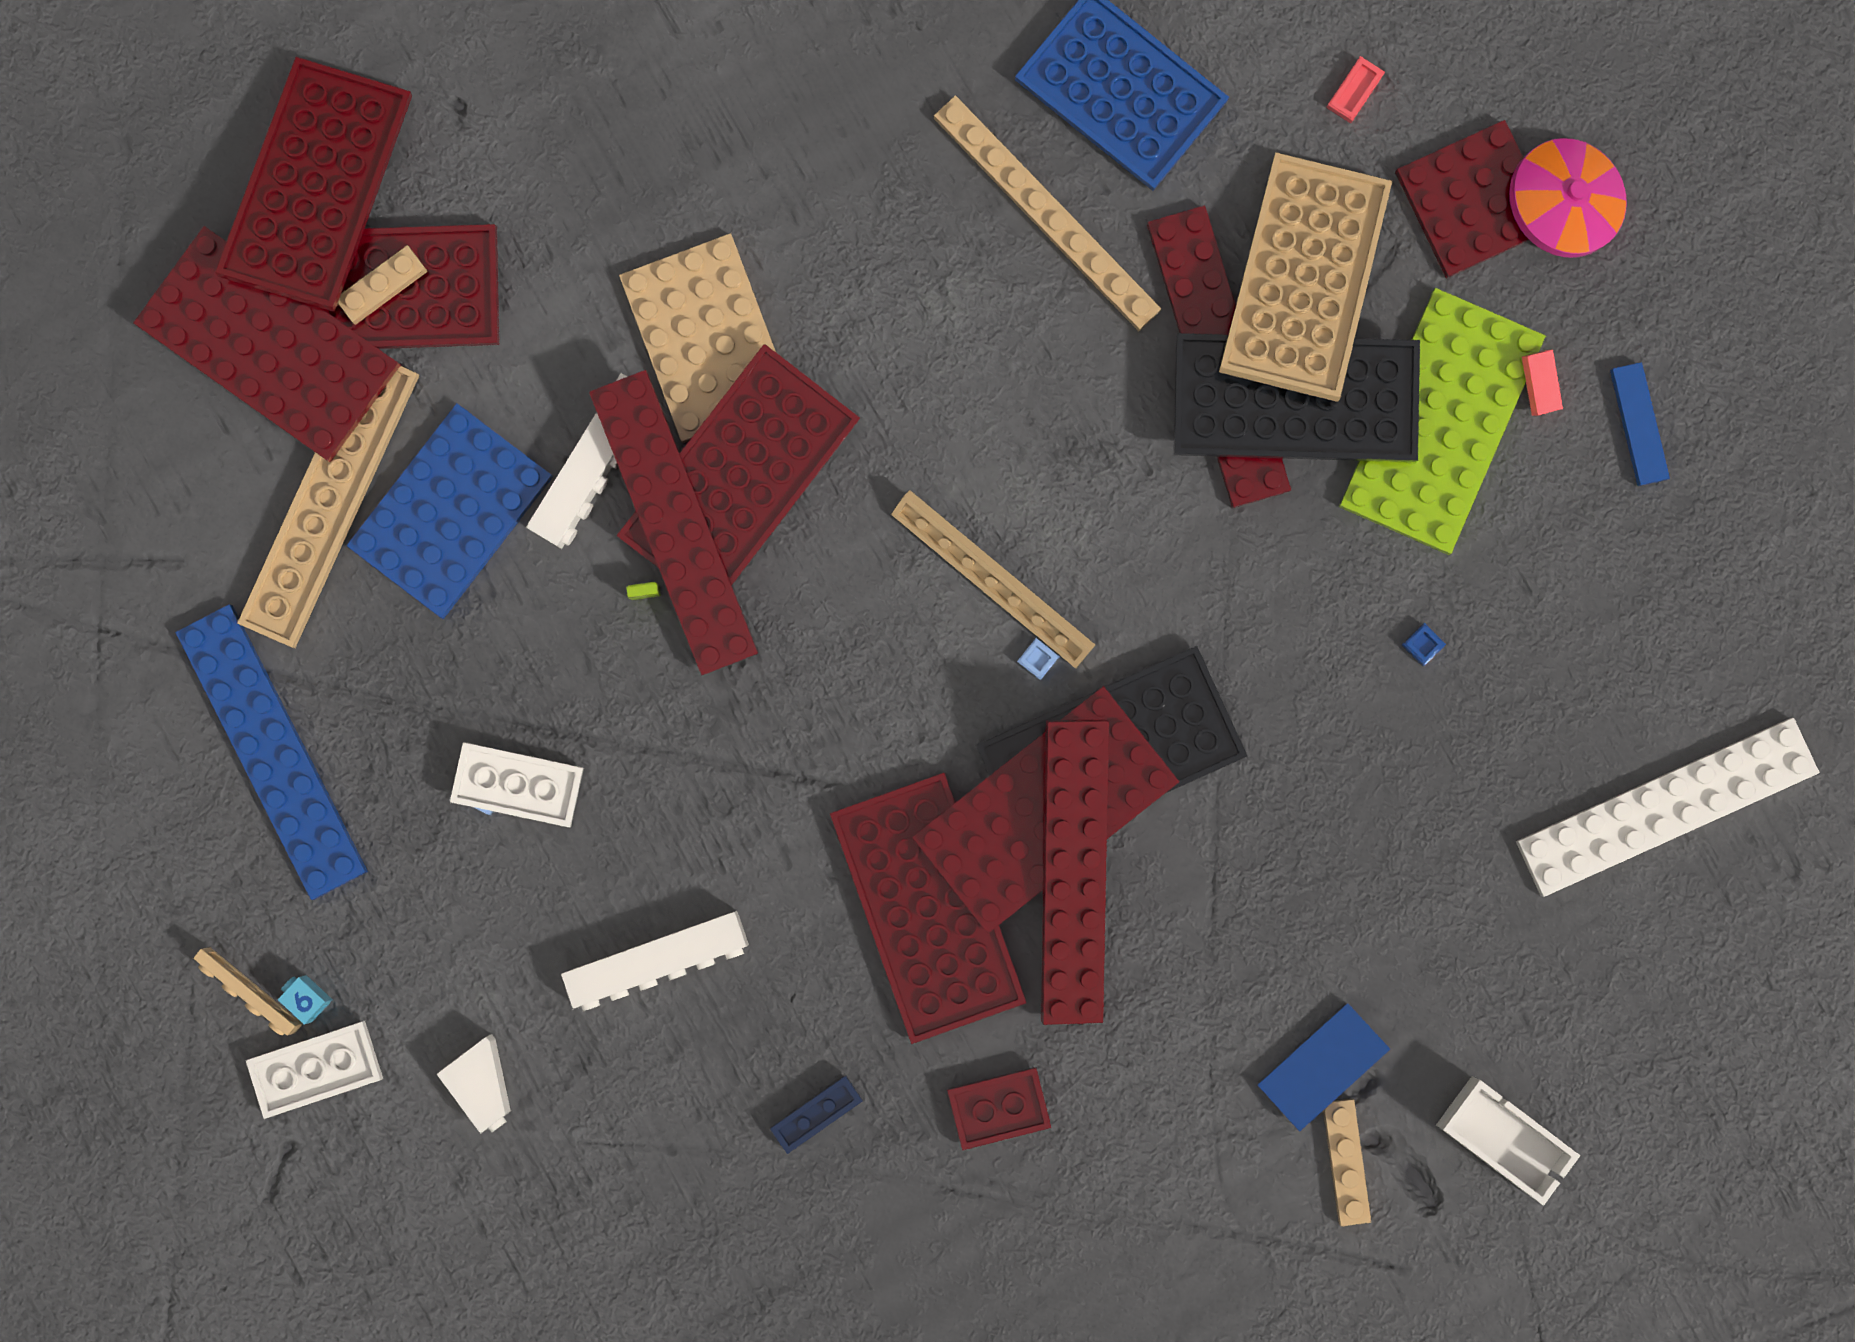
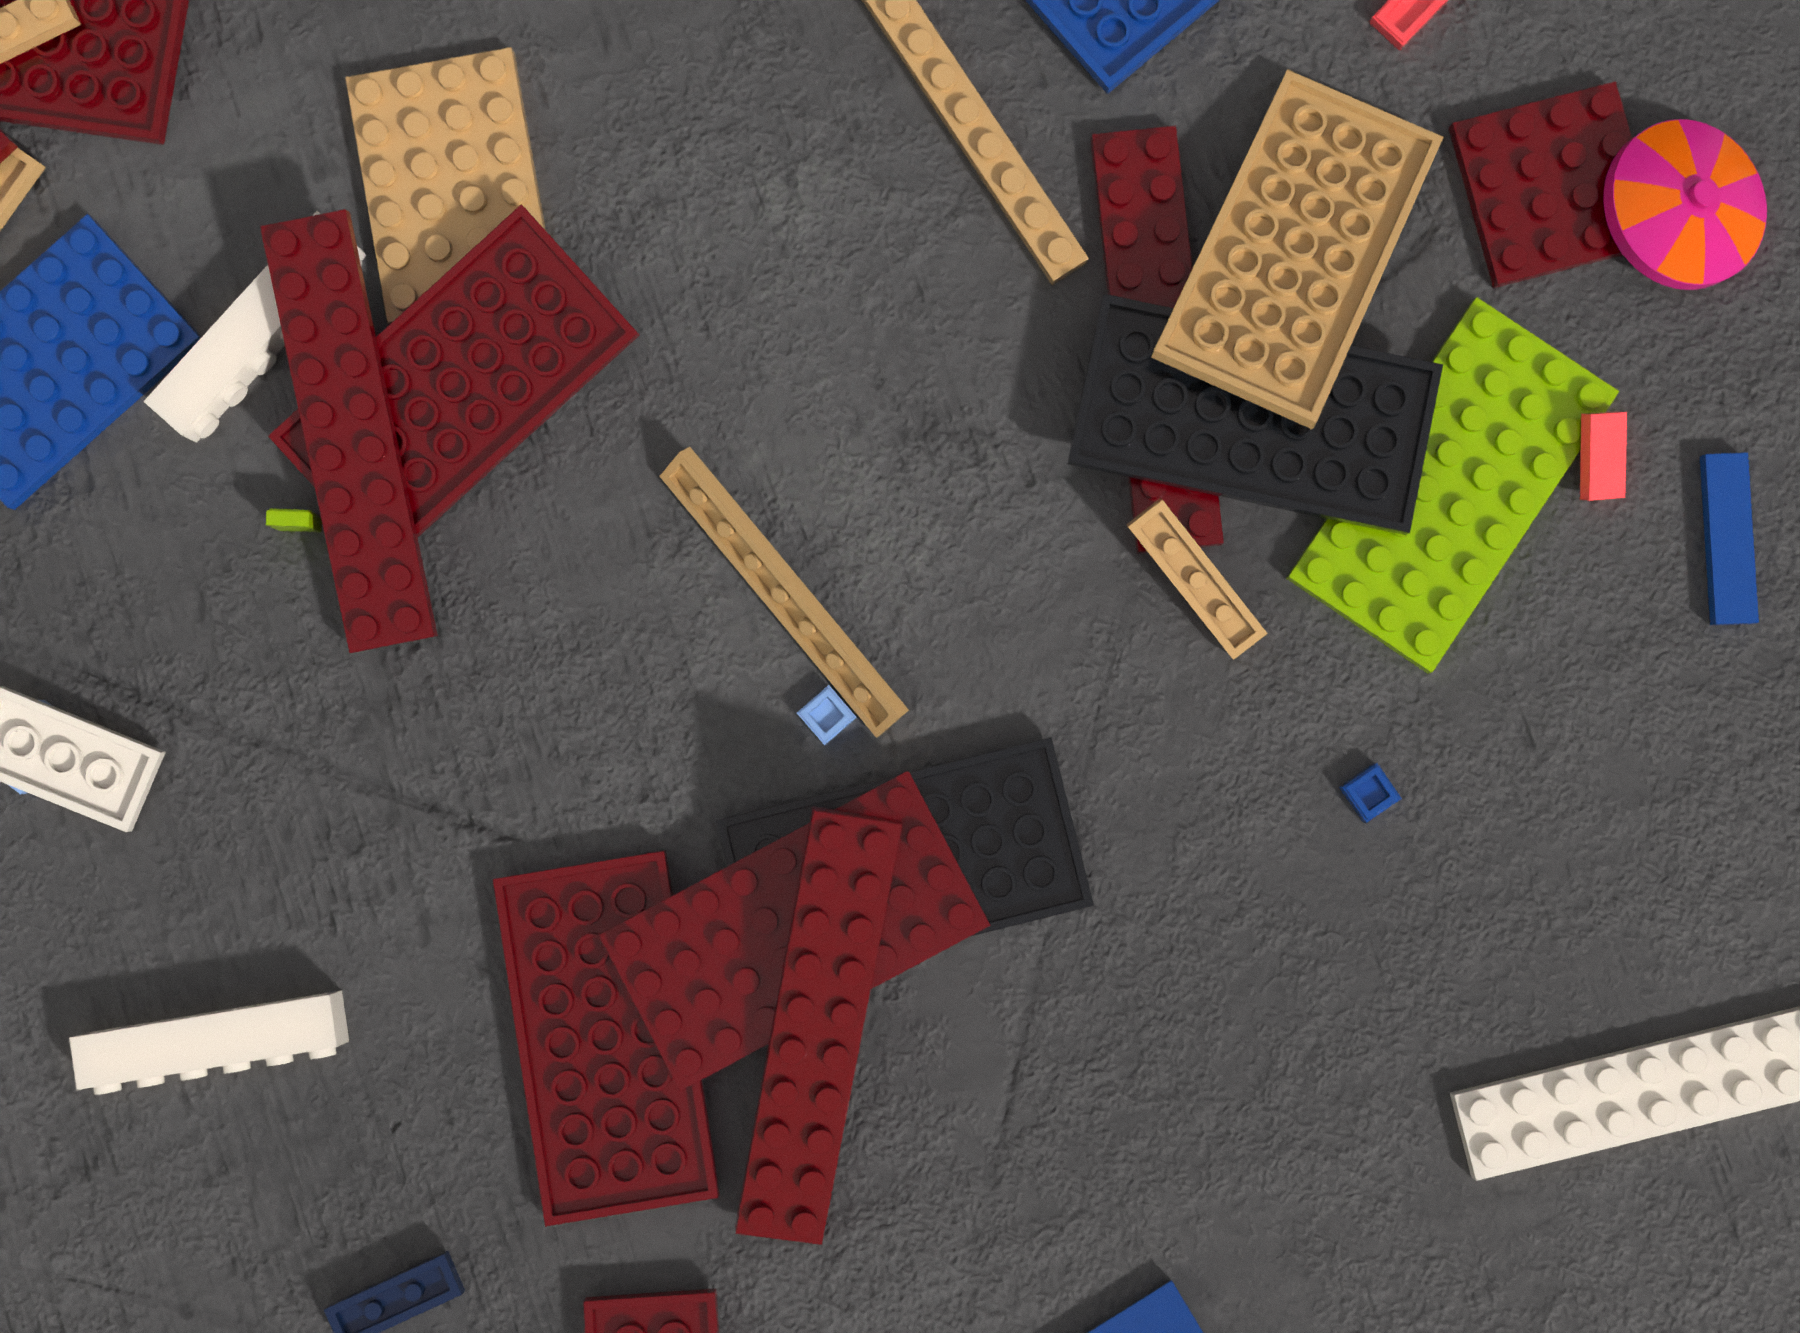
camera: 10 degrees right, 0 degrees up
(1277, 518) = (1196, 578): none -> tan plate

